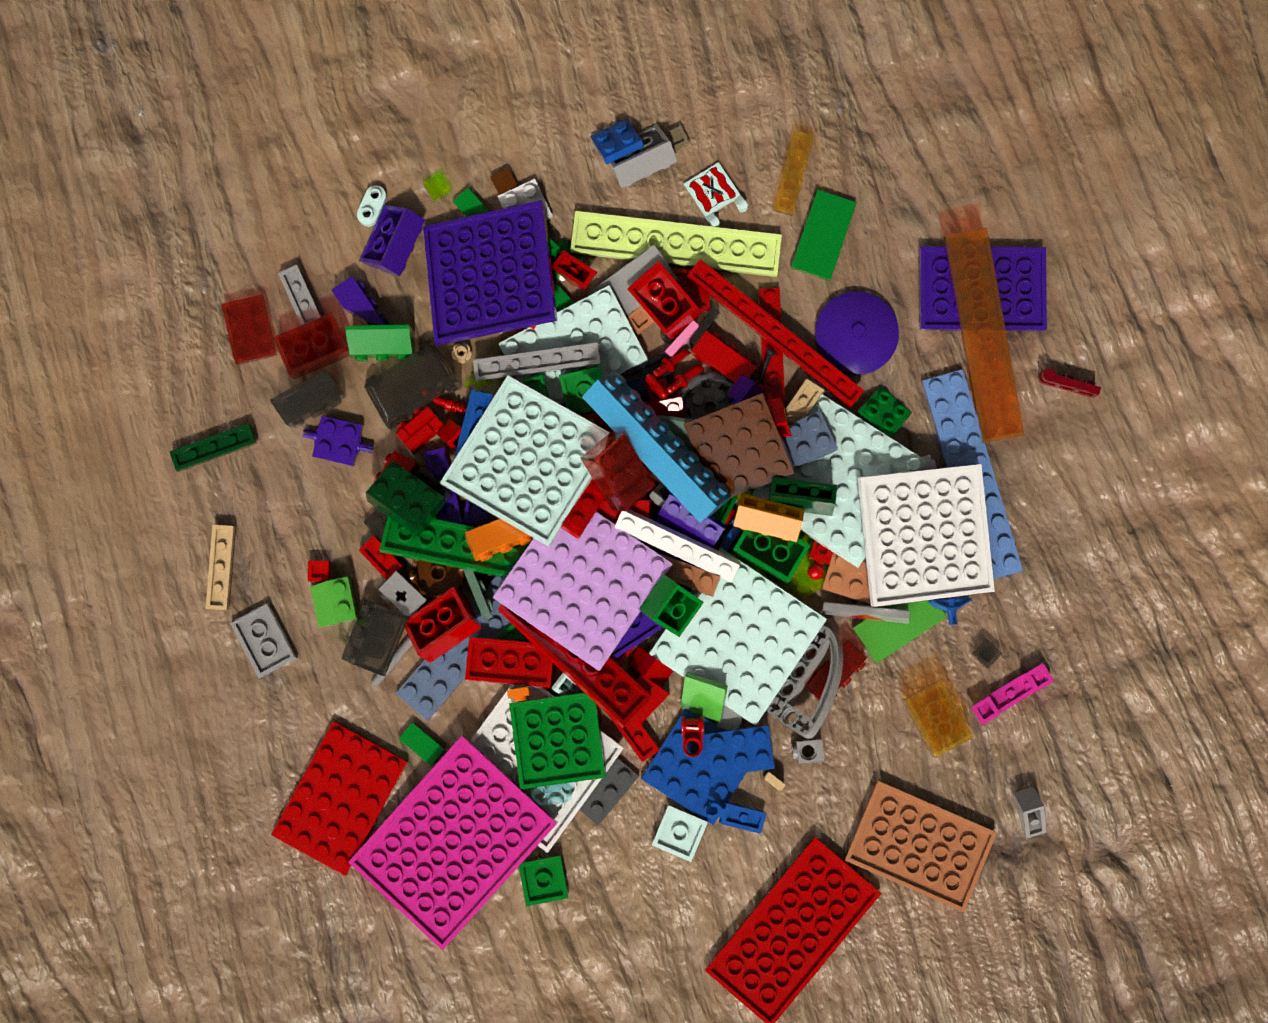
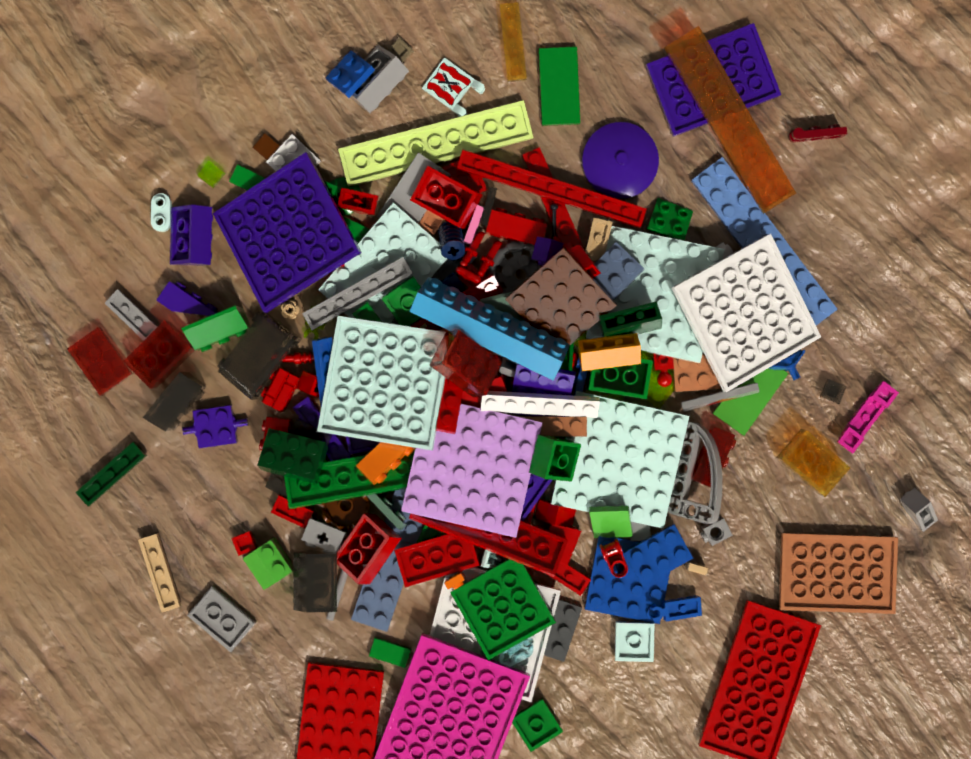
camera: 25 degrees left, 5 degrees up
(652, 346) = (451, 241): none -> dark blue piece

